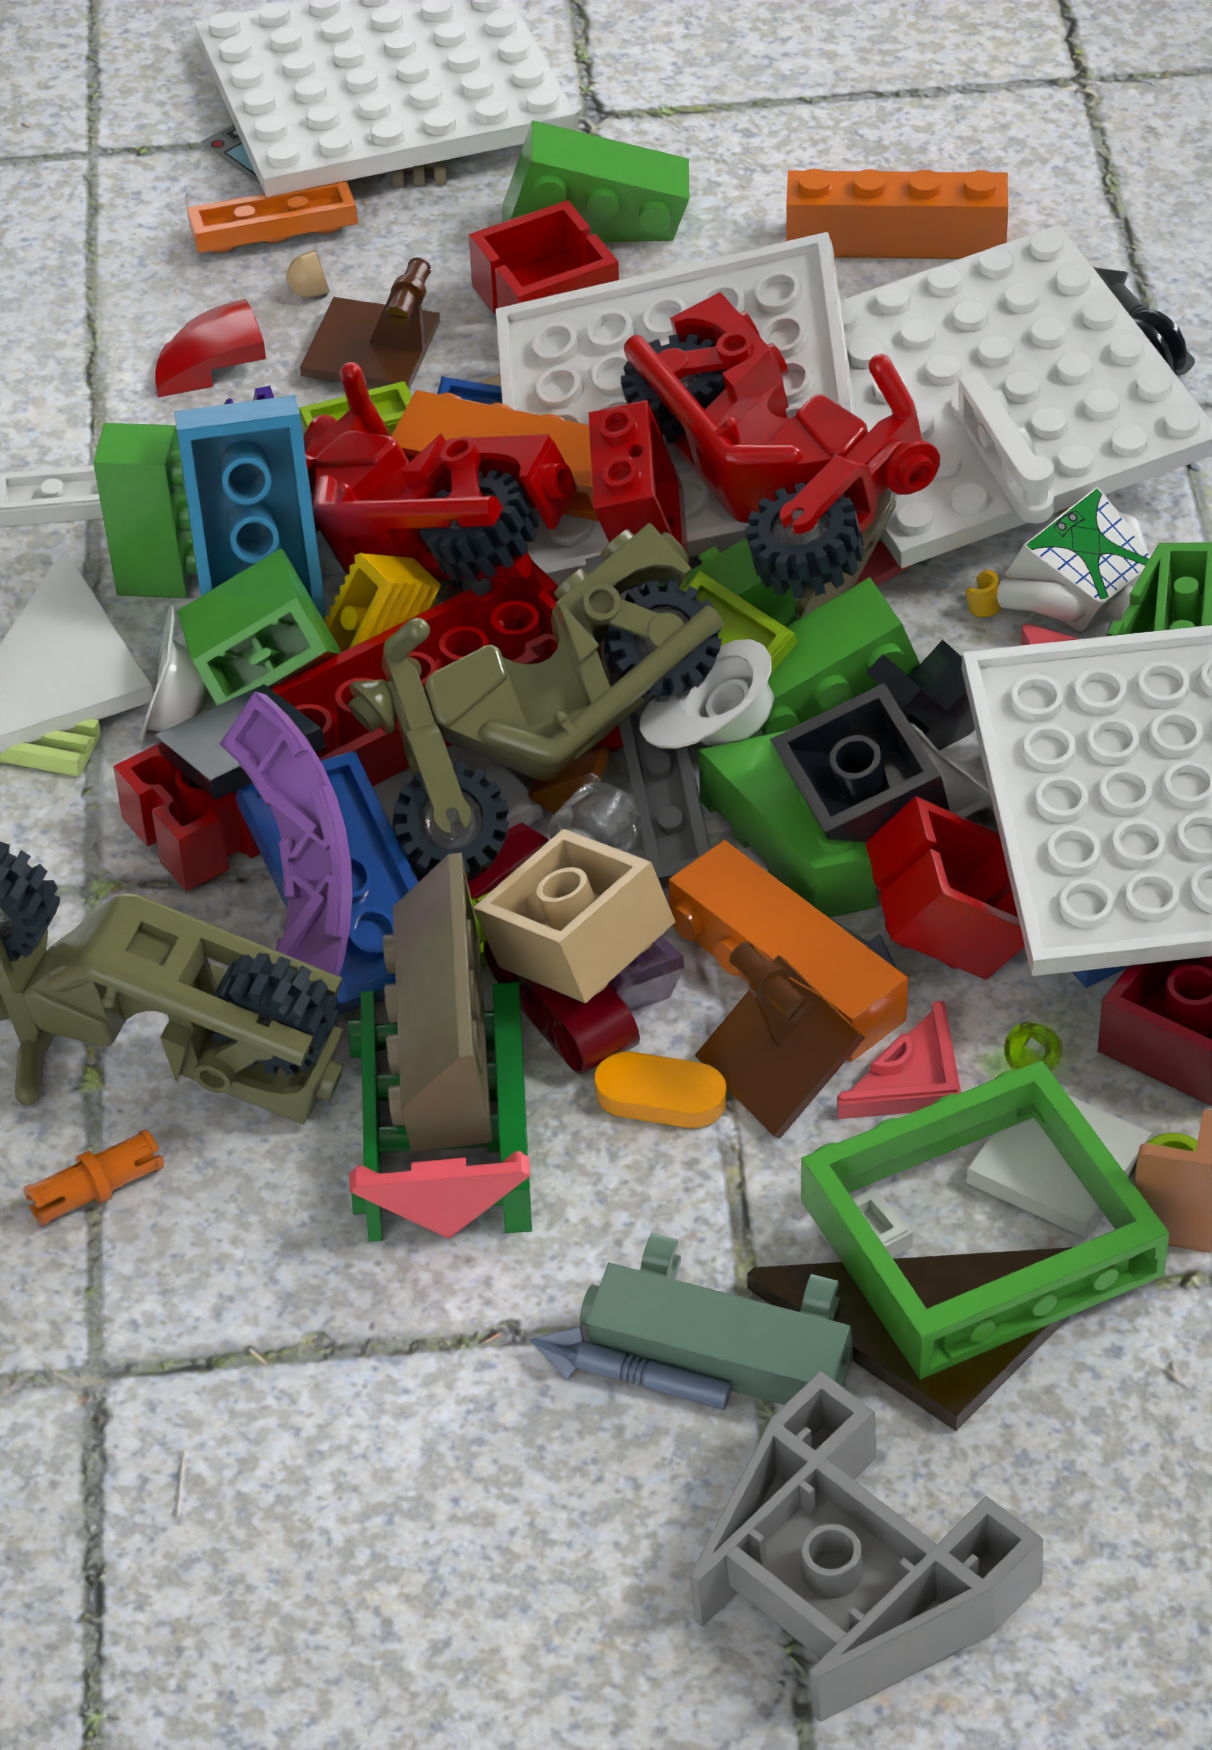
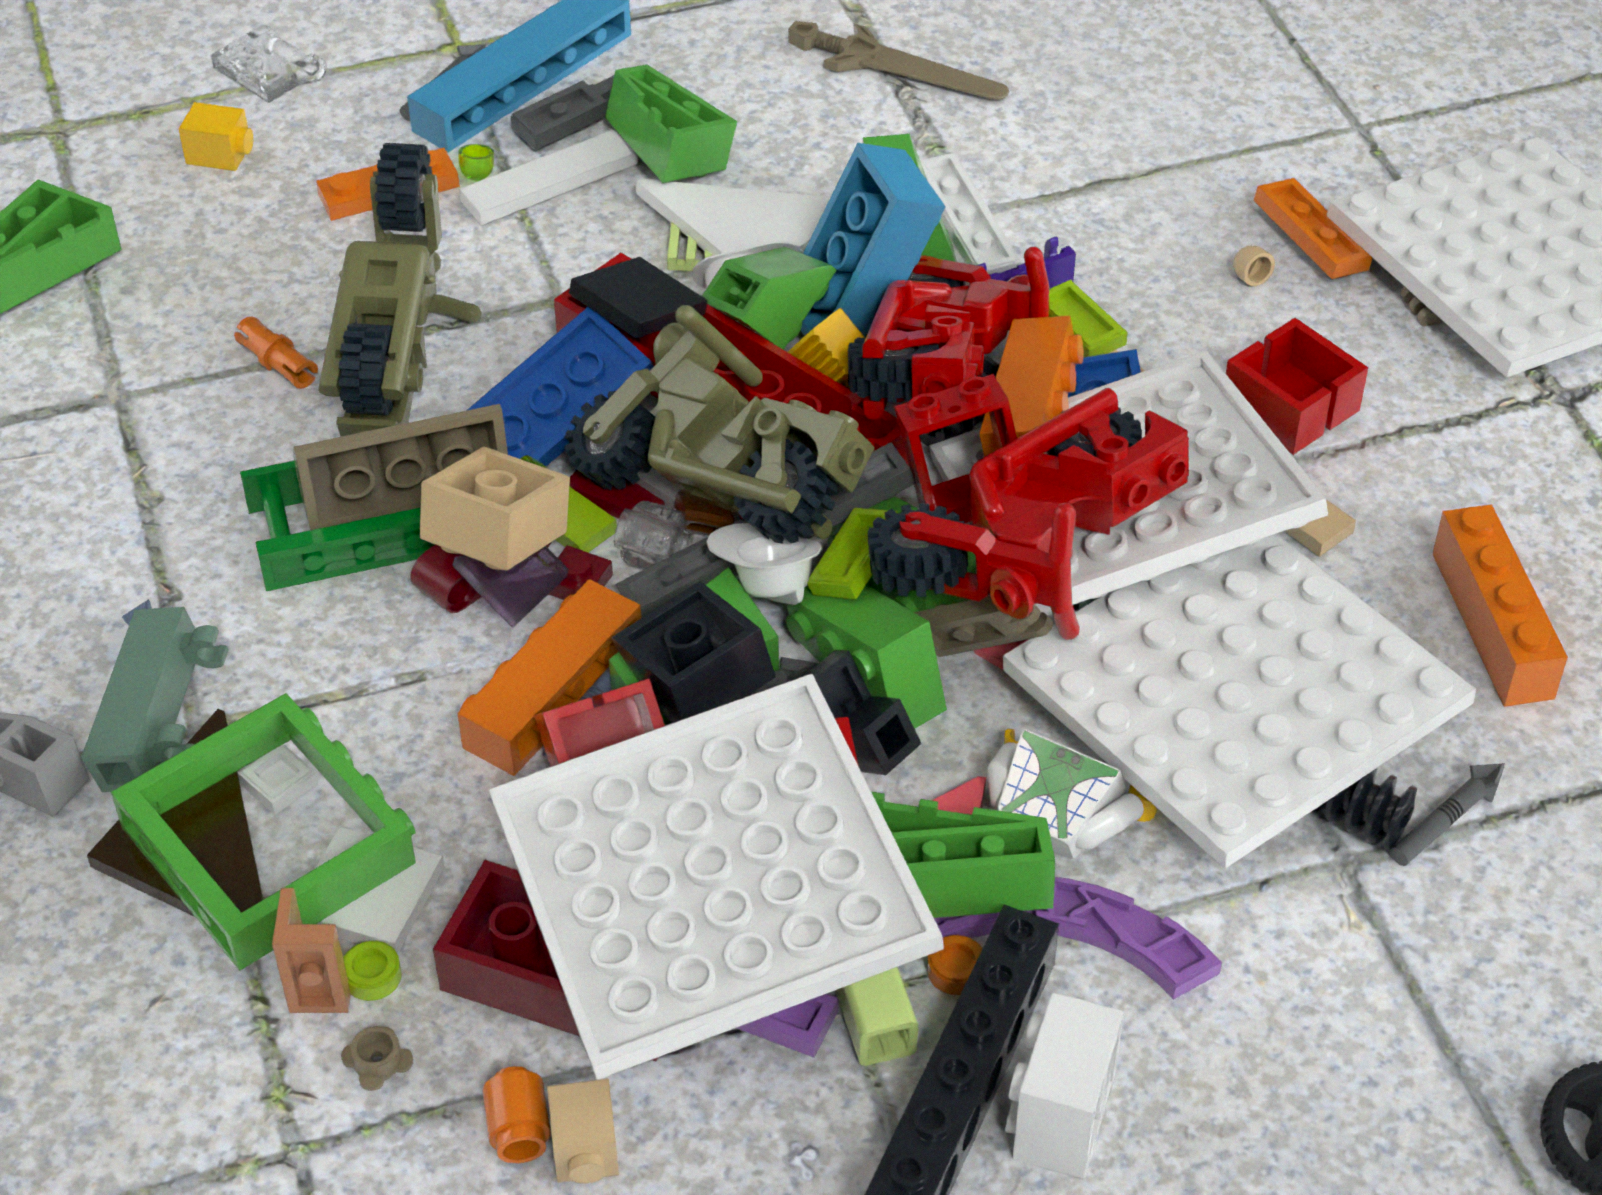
camera: 75 degrees right, 0 degrees up
(208, 342) = (1150, 232): red brick -> none
(310, 826) = (528, 349): medium lavender tile -> none
(380, 338) = (1186, 315): reddish brown plate -> none
(441, 1192) = (248, 496): coral tile -> none
(613, 185) = (1426, 396): bright green wedge -> none
(660, 1089) = (404, 633): light orange tile -> none
(778, 1041) = (446, 671): reddish brown plate -> none
(908, 1073) = (446, 783): coral tile -> none
(1006, 448) = (1118, 680): white plate -> none
(1020, 1055) = (474, 850): clear neon green hinge -> none

